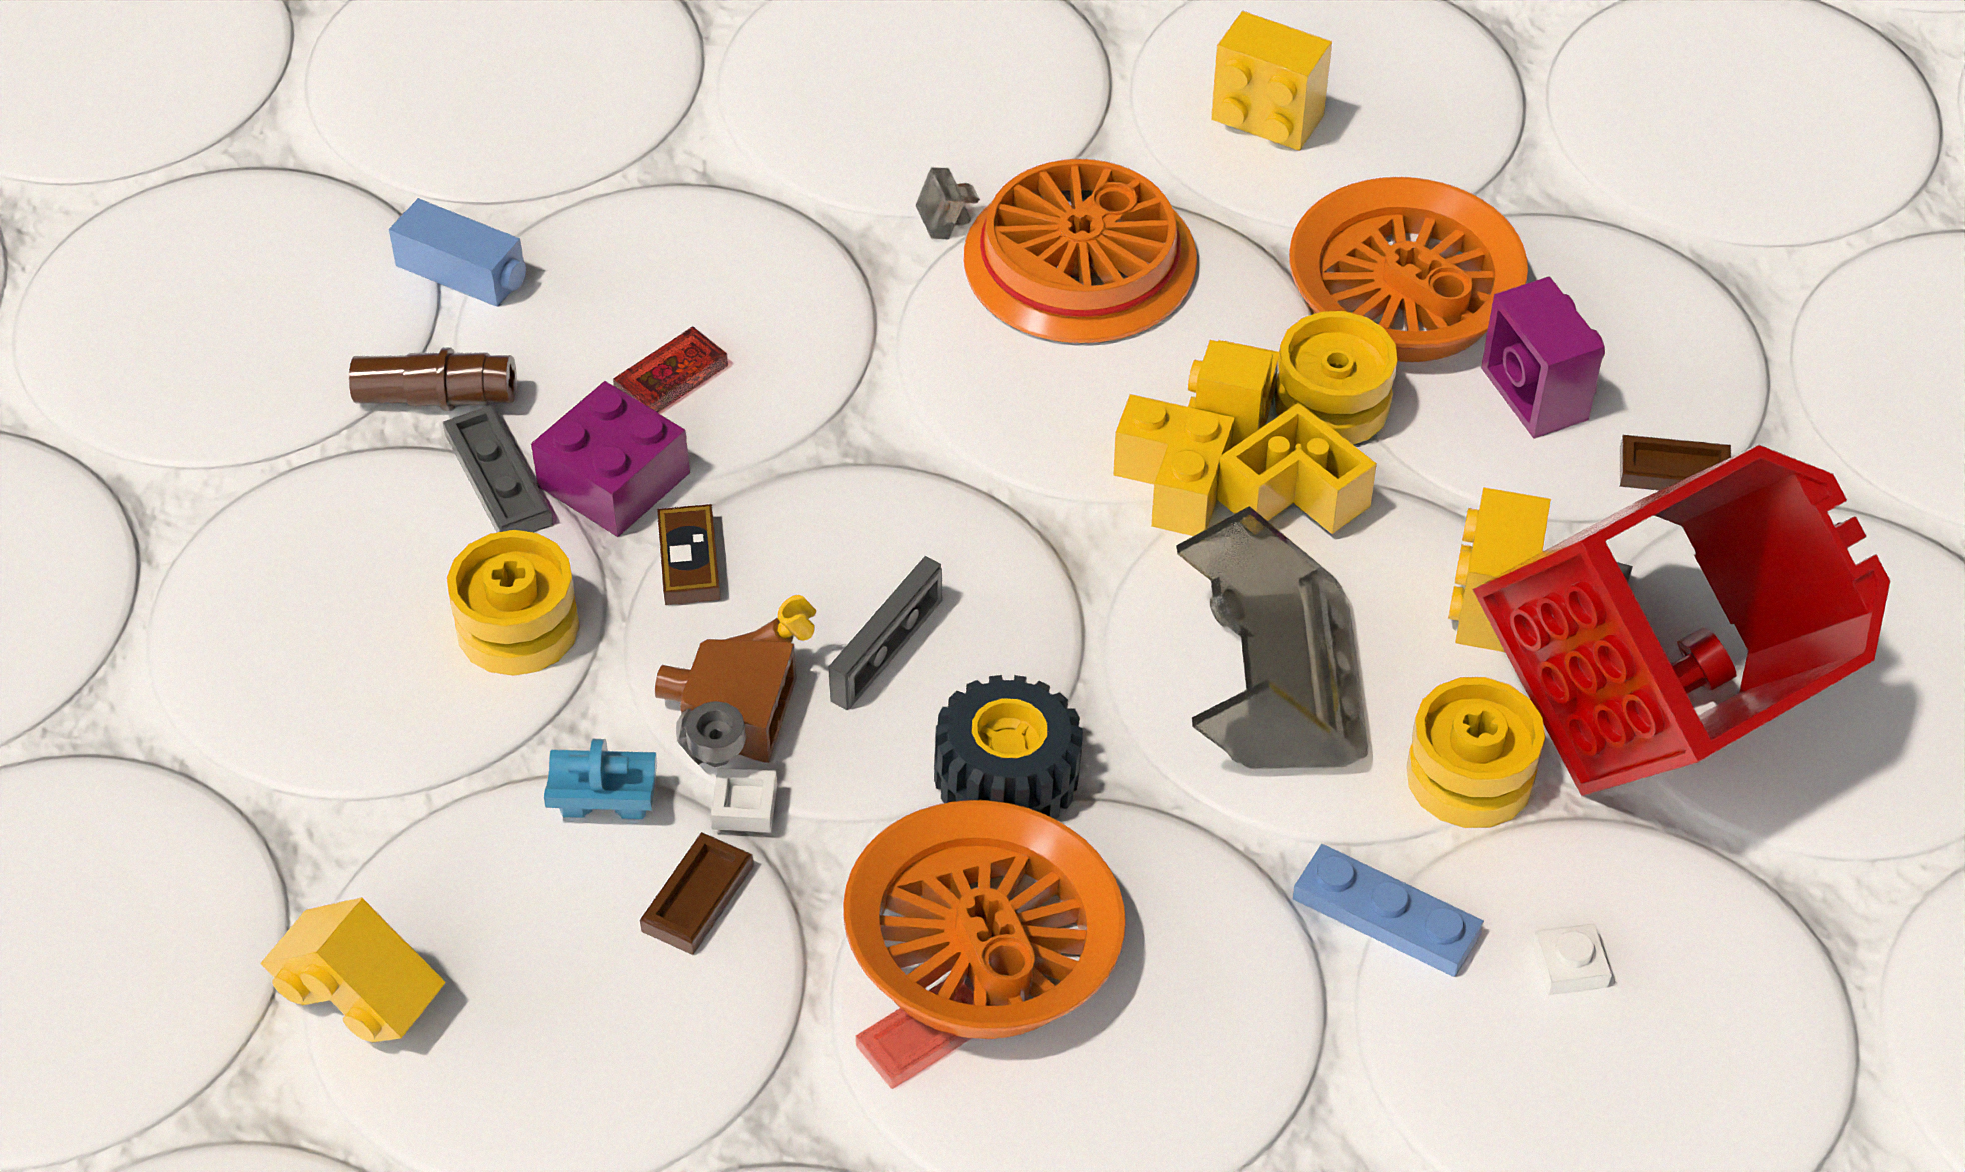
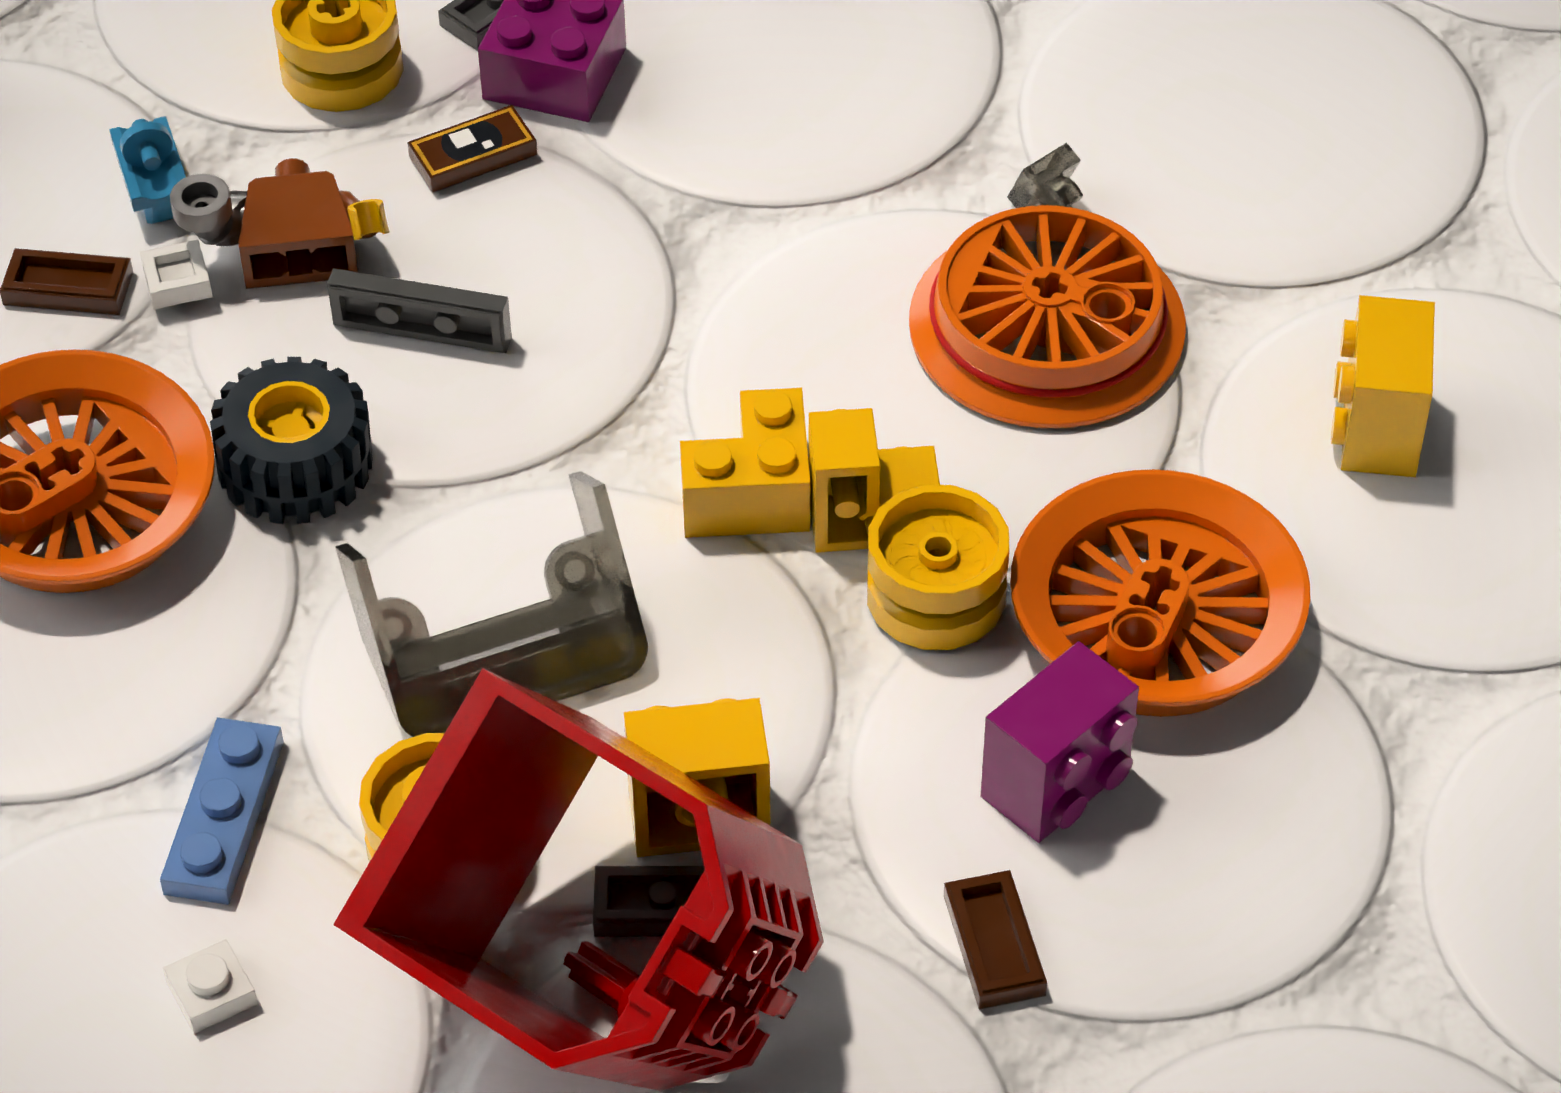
camera: 70 degrees right, 0 degrees up
(672, 370) = (708, 63): clear red tile -> none
(1301, 464) = (781, 563): yellow brick -> none

